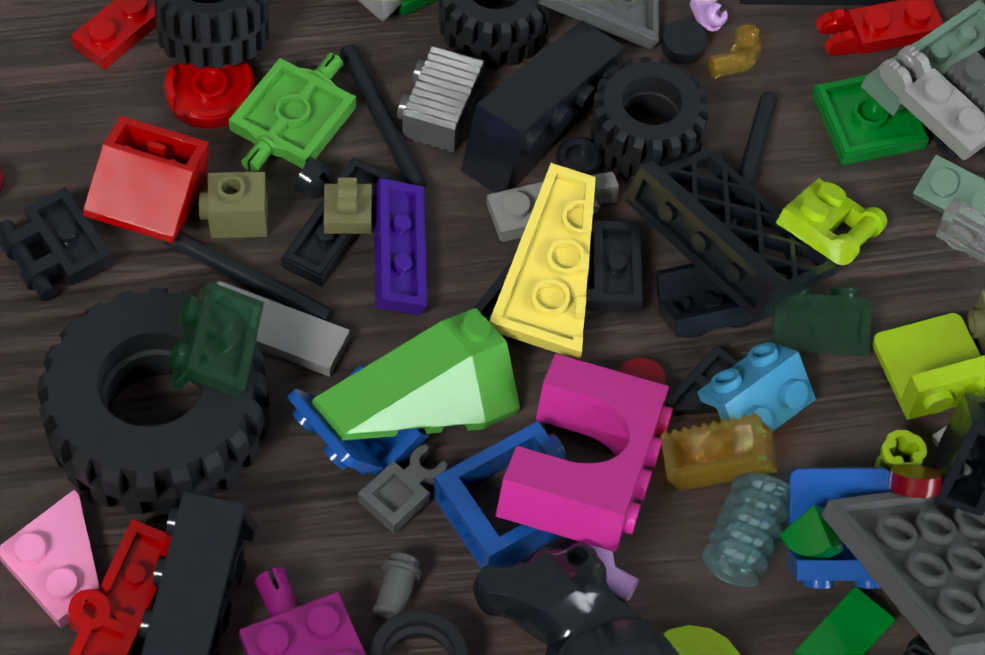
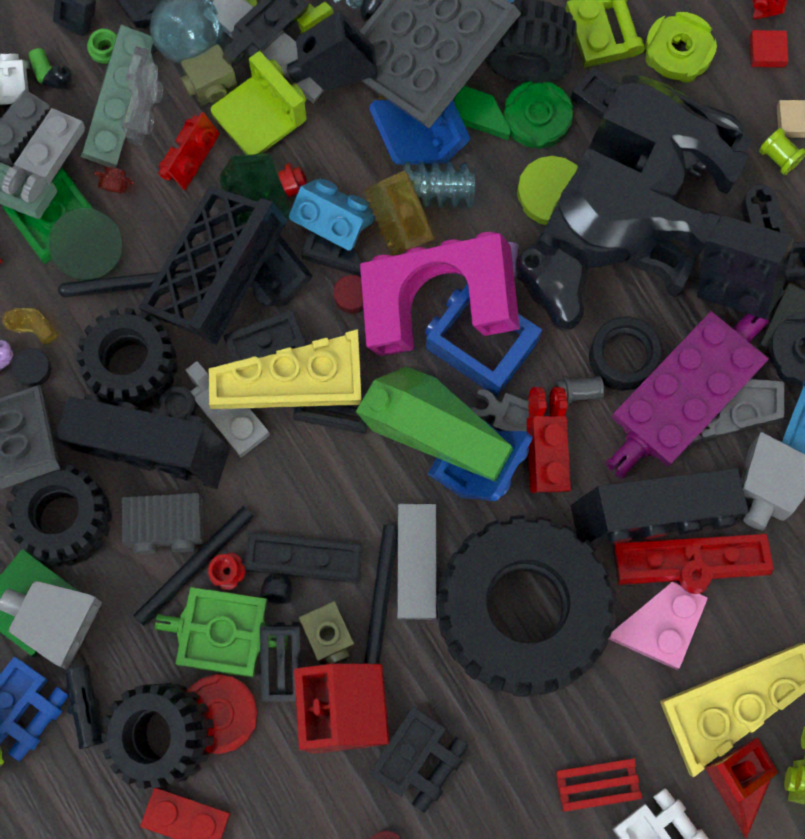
camera: 110 degrees left, 15 degrees up
(216, 339) = (486, 562): clear green bracket -> none
(237, 158) = (280, 631): none -> black tile
(338, 513) = (549, 445): none -> red hinge
(347, 207) = (298, 547): olive tile -> none
(358, 138) = (217, 571): none -> red plate
(400, 247) = (312, 497): dark purple plate -> none
(812, 535) = (439, 136): green tile -> none
(814, 128) = (85, 244): none -> clear green tile
(821, 211) = (174, 214): lime plate -> none
(823, 366) = (292, 179): none -> red plate
(890, 181) = (113, 180): none -> clear red plate
(903, 274) = (195, 143): none -> red hinge
(908, 451) = (345, 111): lime bush -> none
(915, 481) = (373, 83): dark red tile -> none

